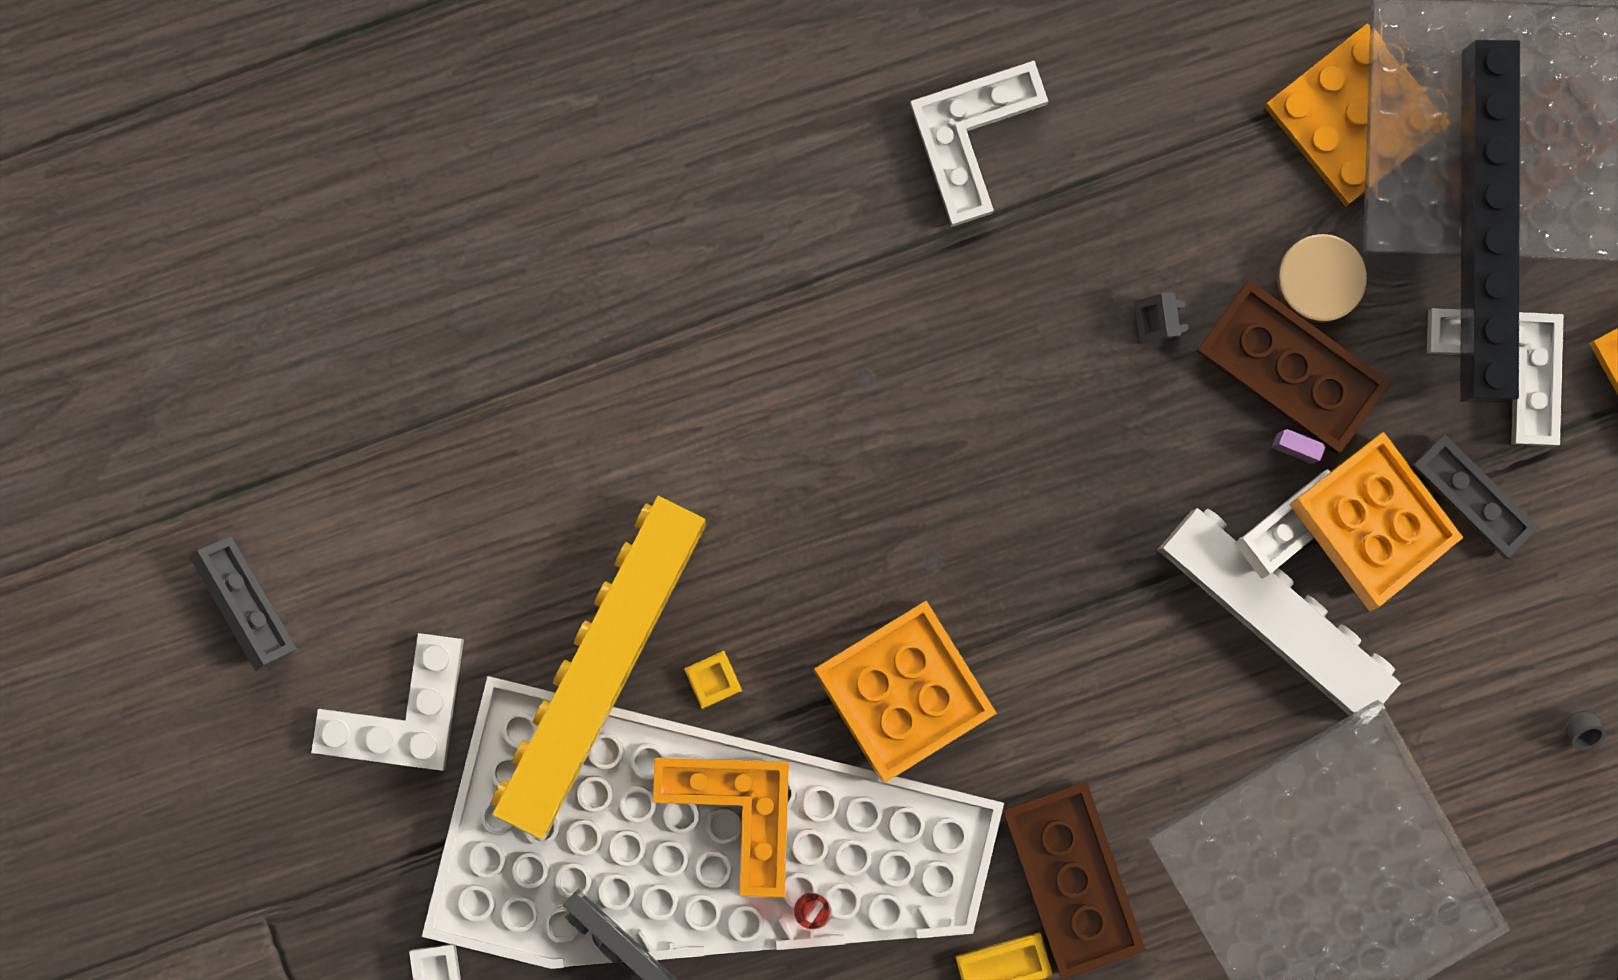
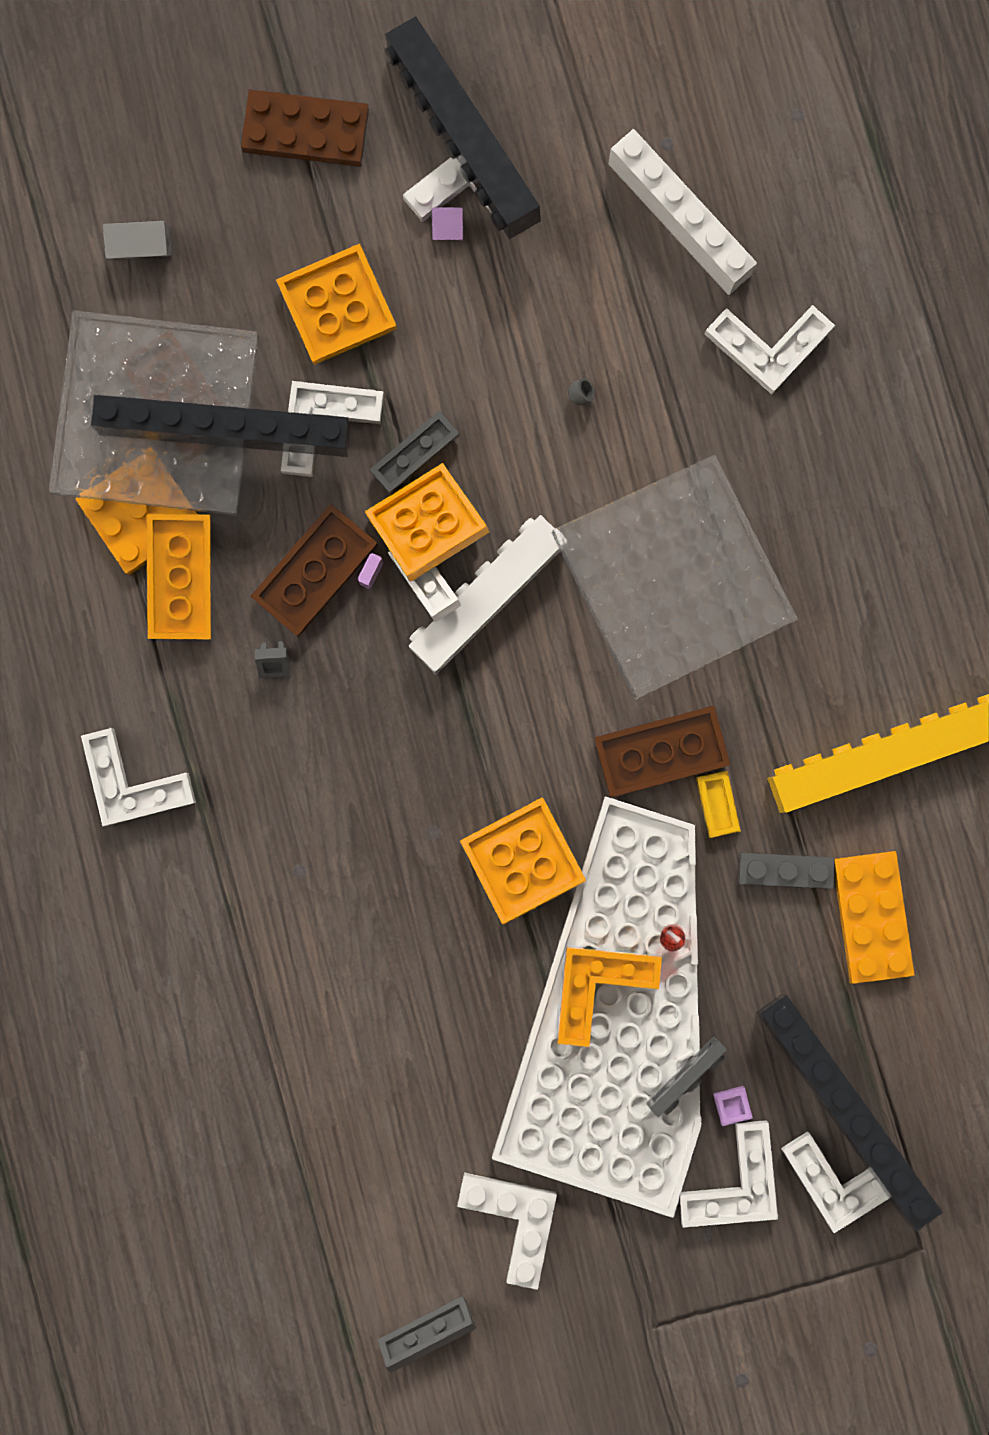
camera: 85 degrees left, 0 degrees up
(599, 668) = (491, 1078): yellow brick -> none
(713, 679) = (505, 995): yellow tile -> none
(1269, 178) = (179, 576): none -> light orange plate
(1321, 278) = (253, 545): tan tile -> none

